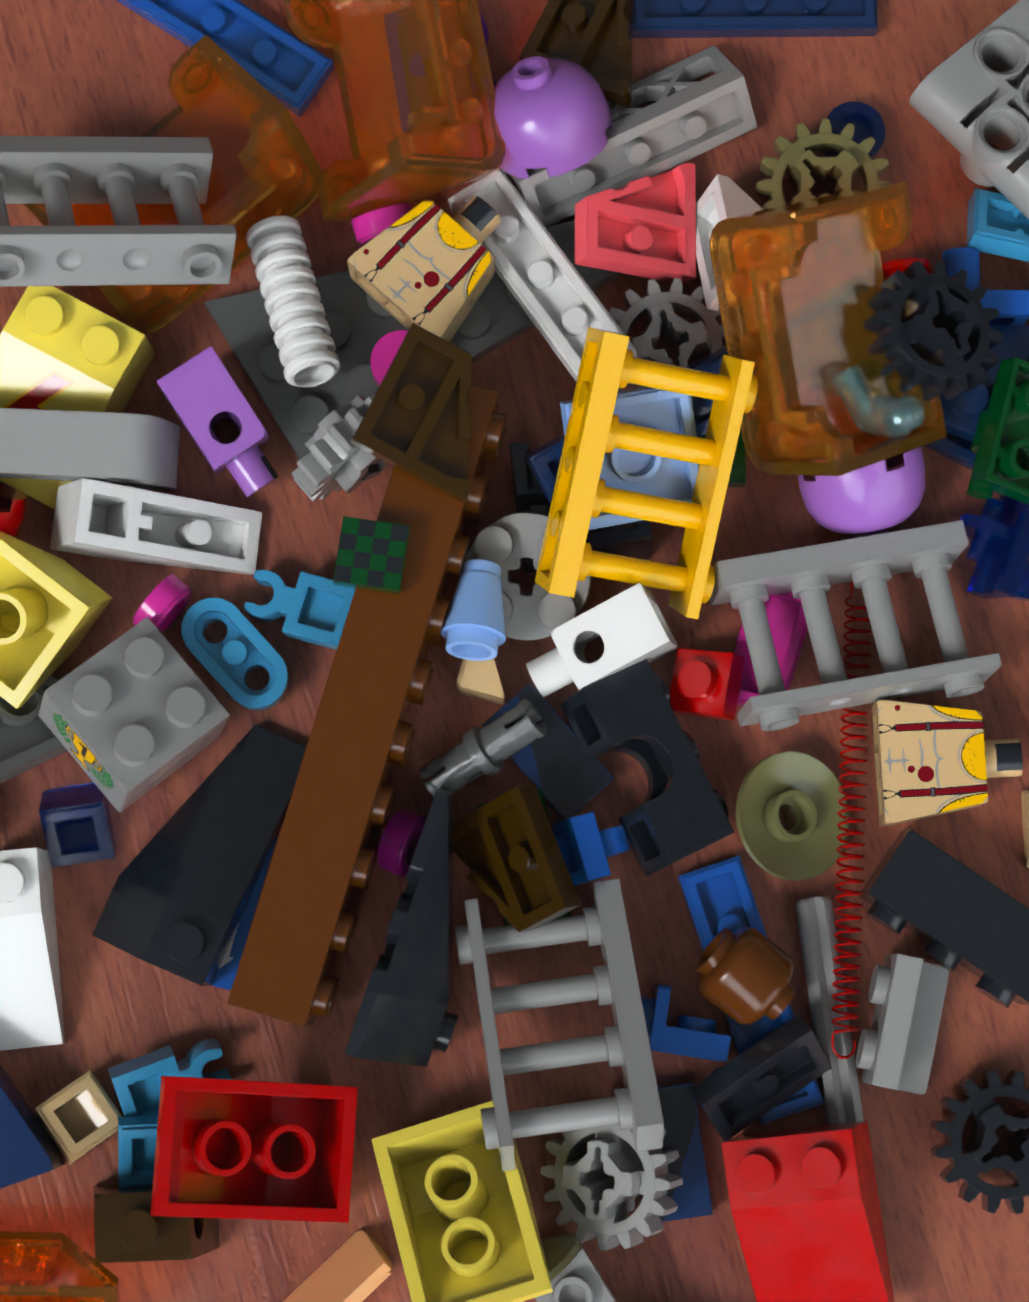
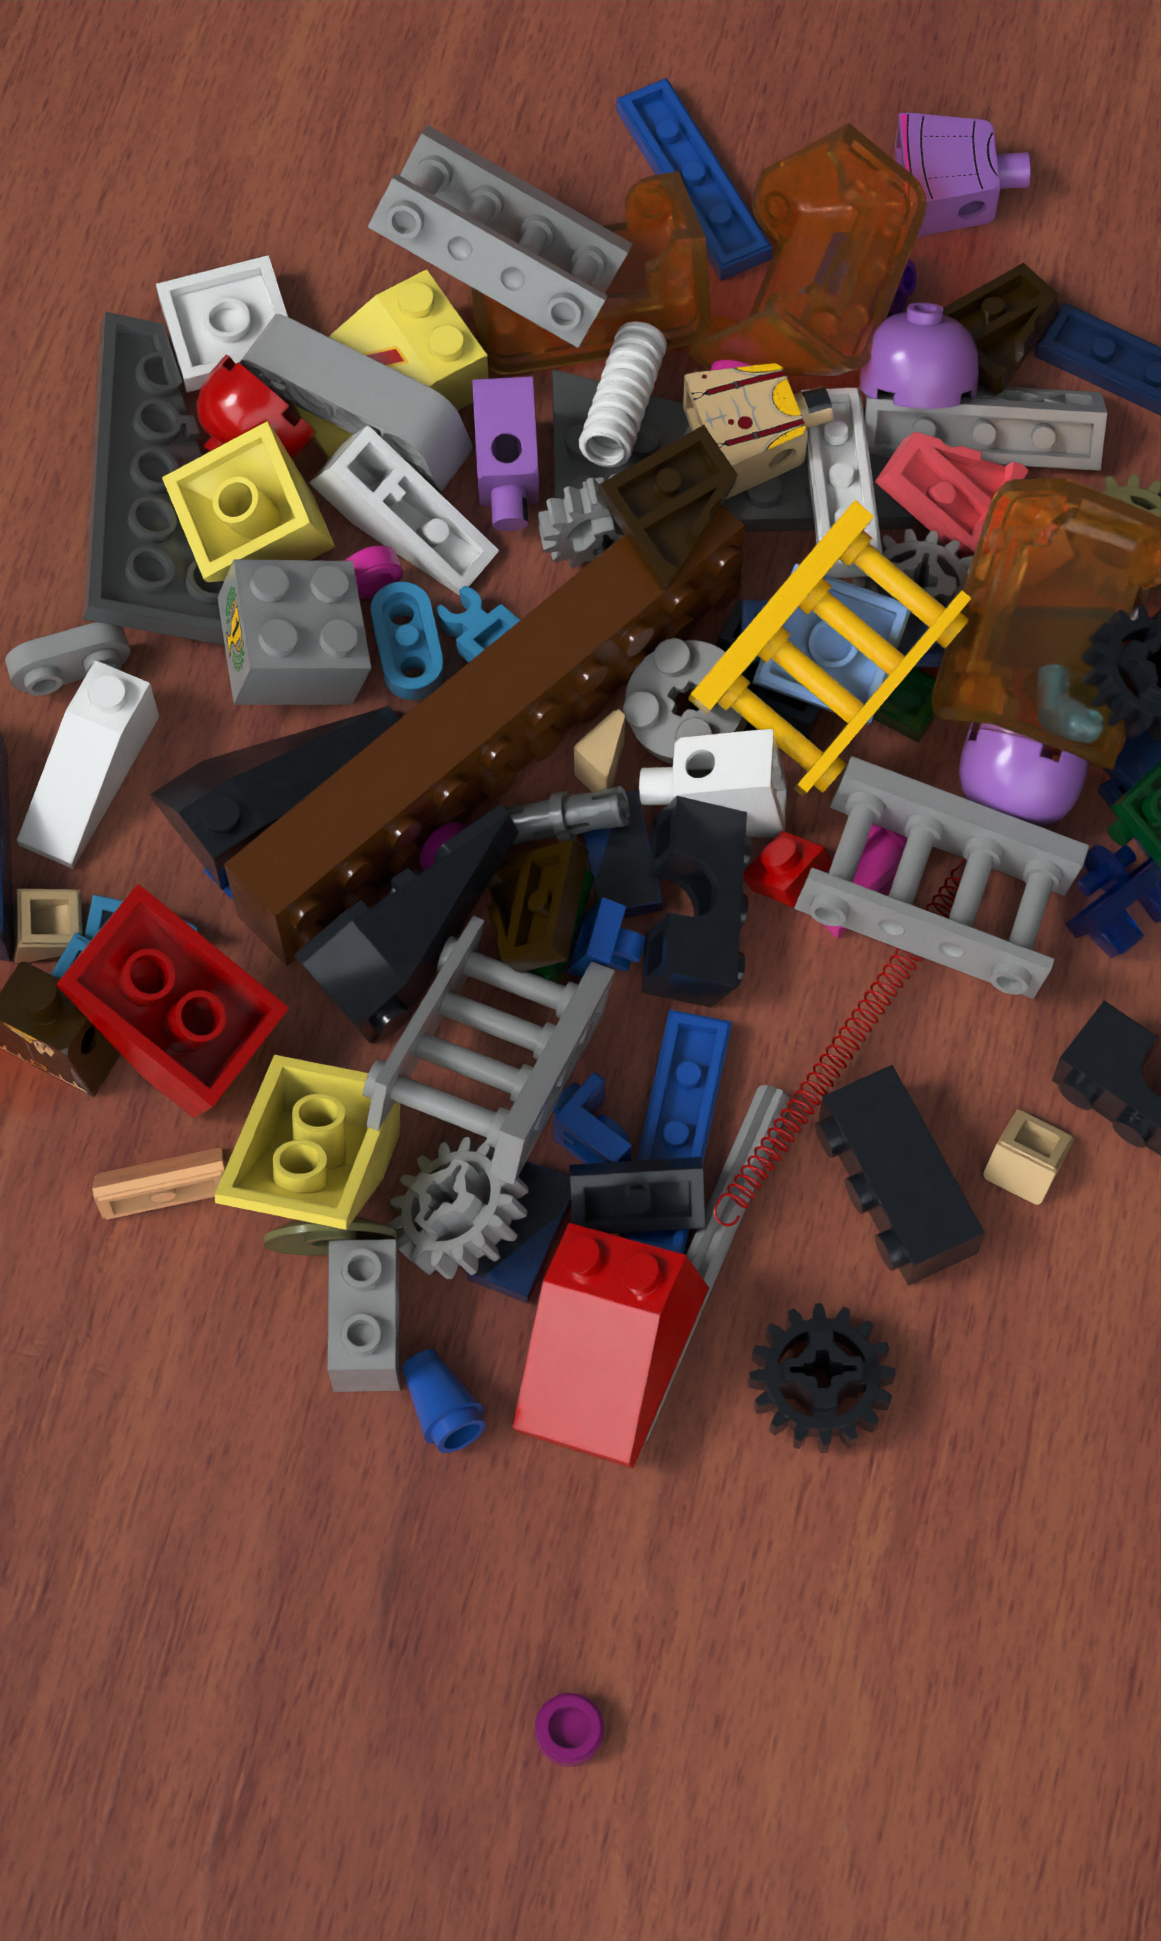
camera: 35 degrees right, 15 degrees down
(77, 825) = (193, 706): clear blue slope -> none
(371, 555) = (561, 587): tile -> none
(476, 613) = (622, 692): light blue cone -> none
(745, 975) = (674, 1103): reddish brown head -> none
(809, 800) = (817, 995): olive dish -> none
(904, 1023) = (791, 1230): light grey bracket -> none
(935, 760) = (950, 1034): tan torso -> none

